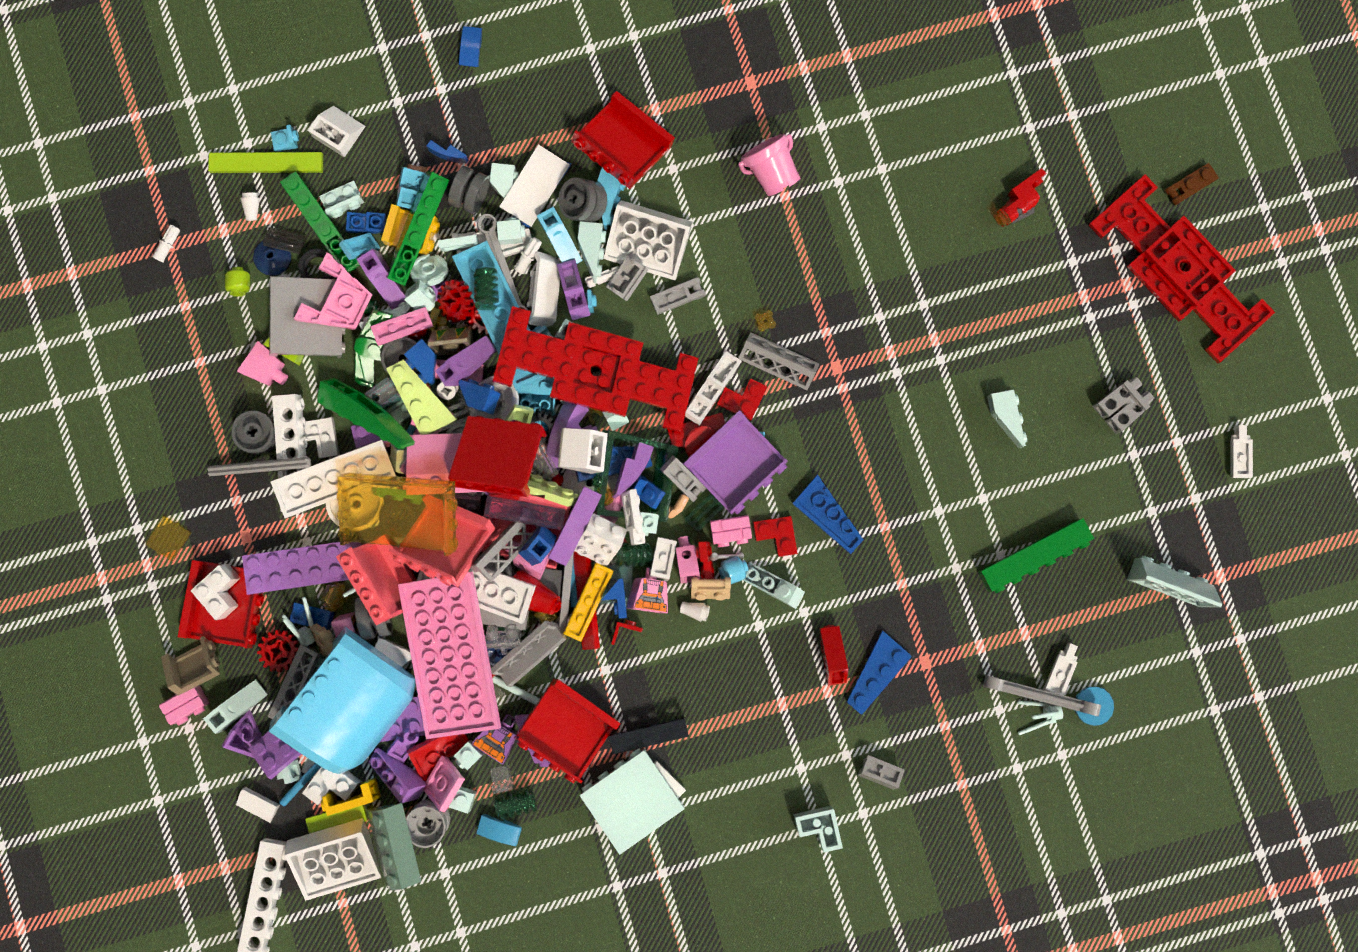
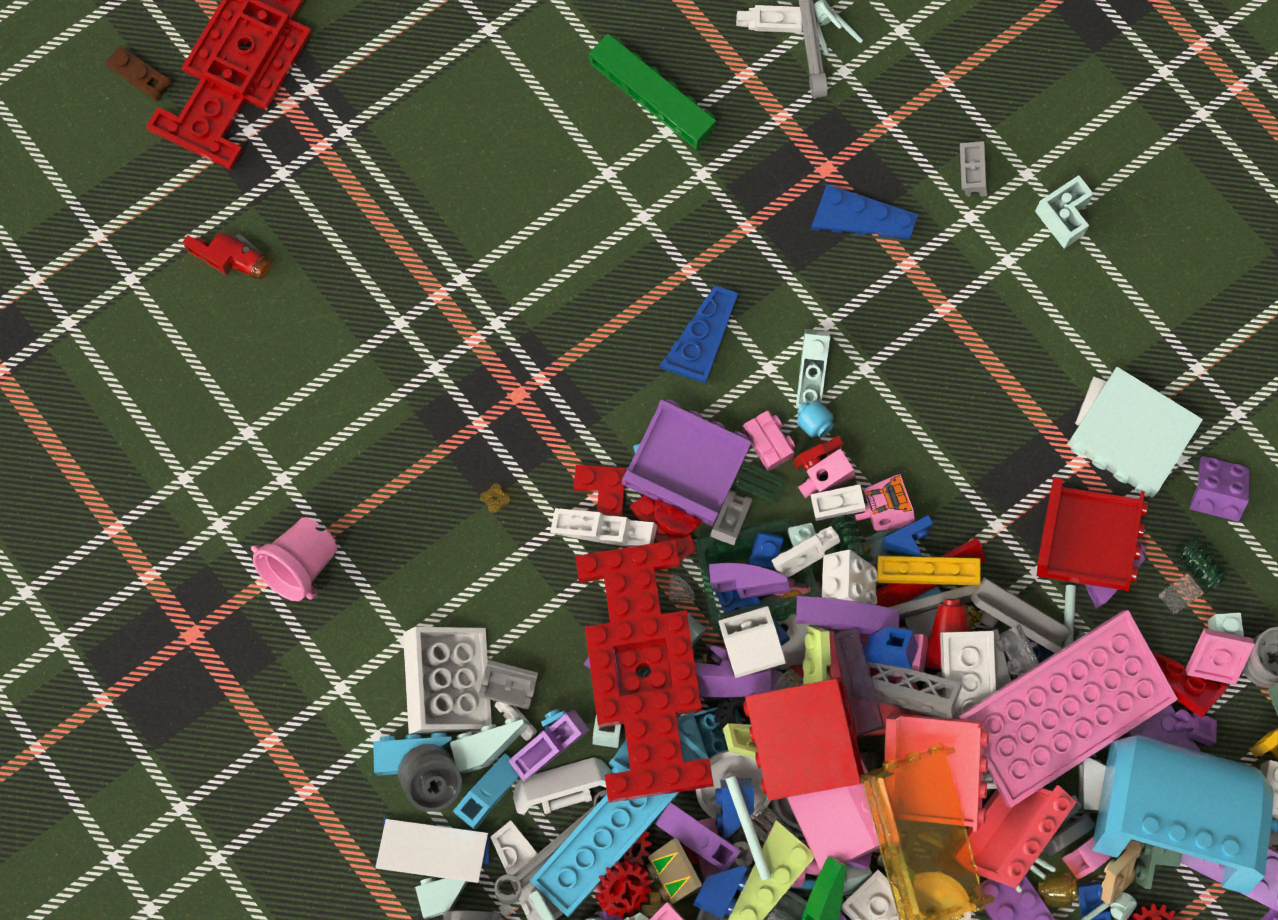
camera: 110 degrees left, 10 degrees down
(296, 678) = (1185, 897): light grey fence -> none
(398, 777) = (1236, 718): medium lavender slope -> none
(456, 395) = (748, 828): none -> light aqua bar
(468, 755) = (1172, 642): light aqua brick -> none
(484, 288) = (595, 849): clear green piece -> none
(497, 742) = (1145, 611): torso -> none
(499, 831) = (1241, 570): dark azure slope -> none
(510, 231) = (504, 854): light aqua brick -> none
(527, 255) = (527, 823): white axle -> none
(566, 846) = (1221, 489): none -> medium lavender bracket
(623, 140) = (330, 759): red panel -> none
(628, 624) = (937, 527): red bracket -> none
(648, 425) = (680, 590): none -> clear tile
(648, 735) = (1050, 443): black fence -> none
(677, 296) = (505, 616): light grey plate -> none
(678, 507) = (764, 512): light nougat arm -> none
(695, 610) = (881, 444): white cone -> none
(710, 588) = (846, 426): tan plate -> none
(714, 556) = (809, 443): light grey hinge -> none
(766, 349) = (533, 461): light grey fence -> none
(781, 530) = (743, 383): red plate -> none
(833, 655) = (863, 268): red slope -> none
(1005, 412) = (497, 181): light aqua slope -> none
(1129, 400) = (436, 57): light grey hips -> none

